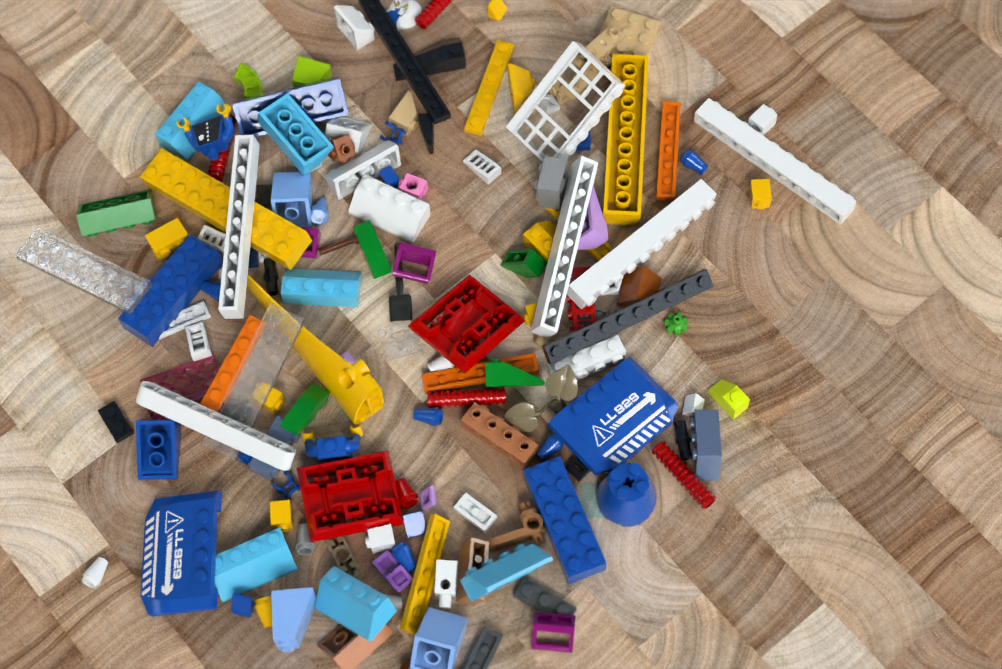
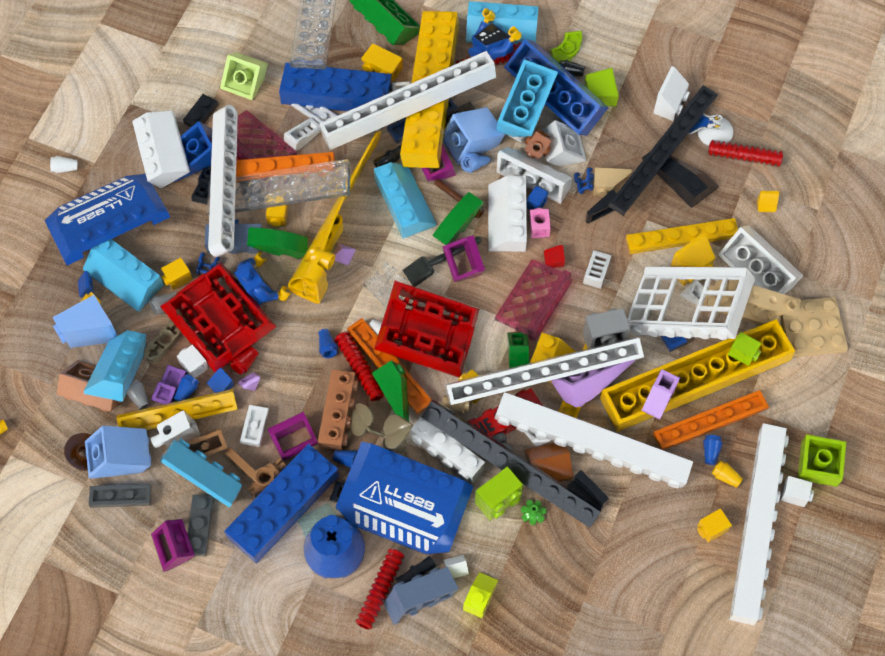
camera: 60 degrees right, 0 degrees up
(102, 364) = (243, 75): none -> yellowish green slope
(137, 470) = (160, 147): none -> white slope
(205, 456) = (200, 194): none -> black slope
(277, 85) = (573, 68): none -> black cone
(451, 193) = (554, 256): none -> red slope
(494, 500) = (288, 427): none -> magenta tile
(496, 223) = (545, 309): none -> clear pink fence
(548, 42) = (766, 264): none -> white slope
(633, 88) = (745, 349): none -> lime brick
(635, 168) = (660, 394): none -> lavender slope
(651, 338) = (499, 494): none -> lime brick
(680, 270) = (588, 489): none -> black panel
(721, 162) = (727, 474): none -> yellow cone
(747, 88) = (822, 460): none -> lime brick

